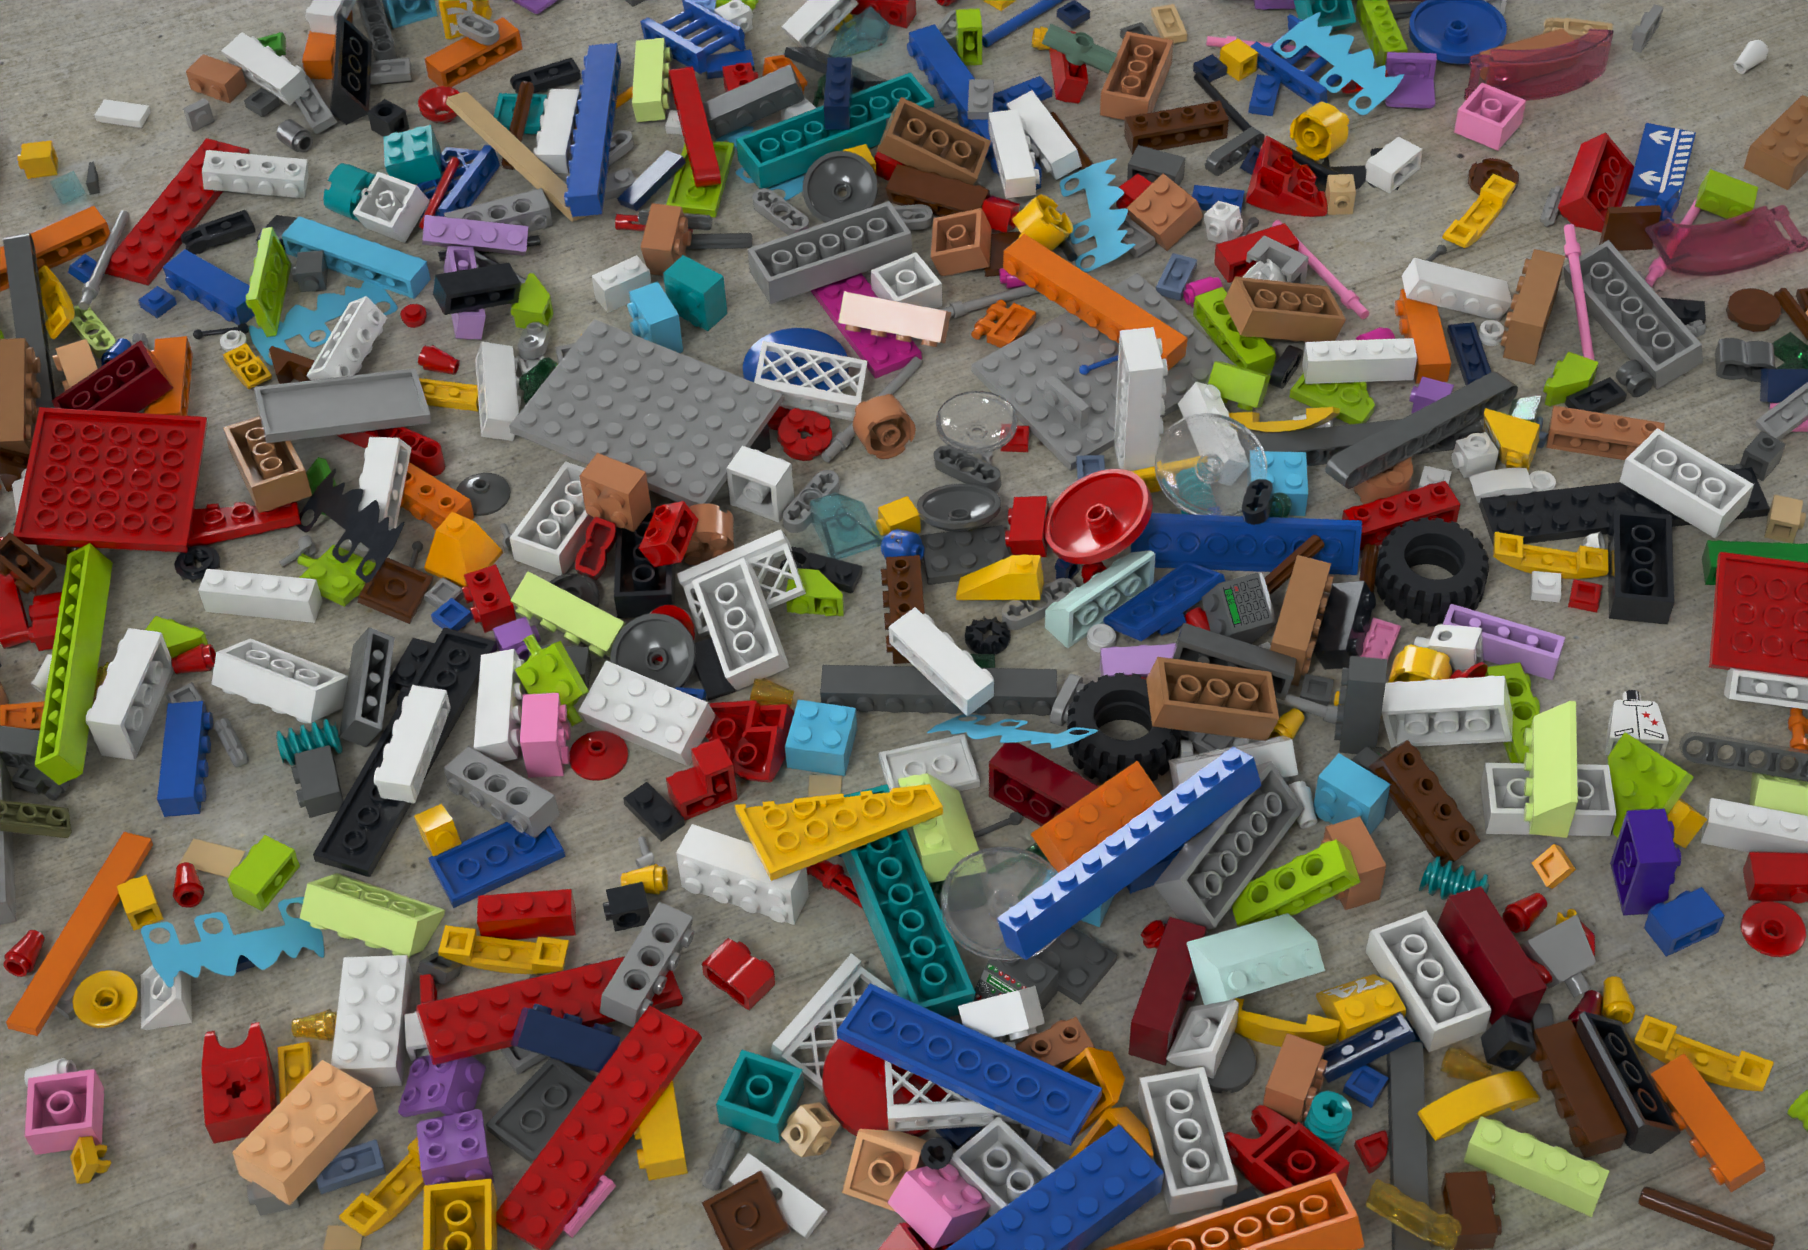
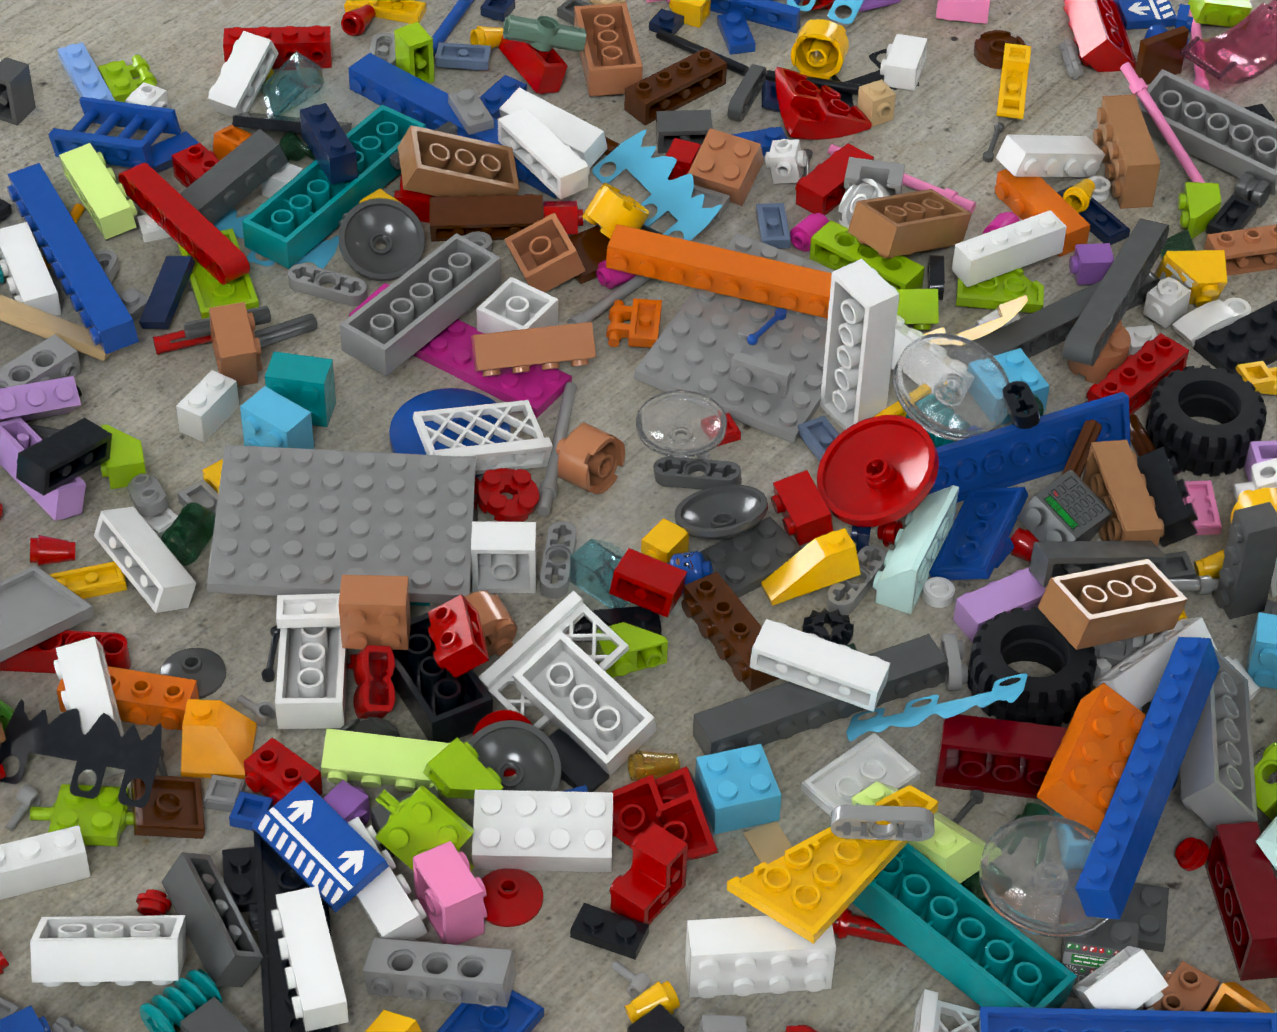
camera: 30 degrees left, 5 degrees down
(338, 659) = (153, 903): none -> red plate
(472, 661) = (320, 846): none -> blue tile
(566, 471) = (308, 610): none -> white plate
(605, 642) = (460, 773): none -> lime slope
(856, 544) = (648, 582): none -> red brick
(879, 805) = (849, 820): none -> light grey beam
(1016, 49) = (463, 56): none -> sand blue plate
(1461, 334) = (1080, 194): none -> yellow cone

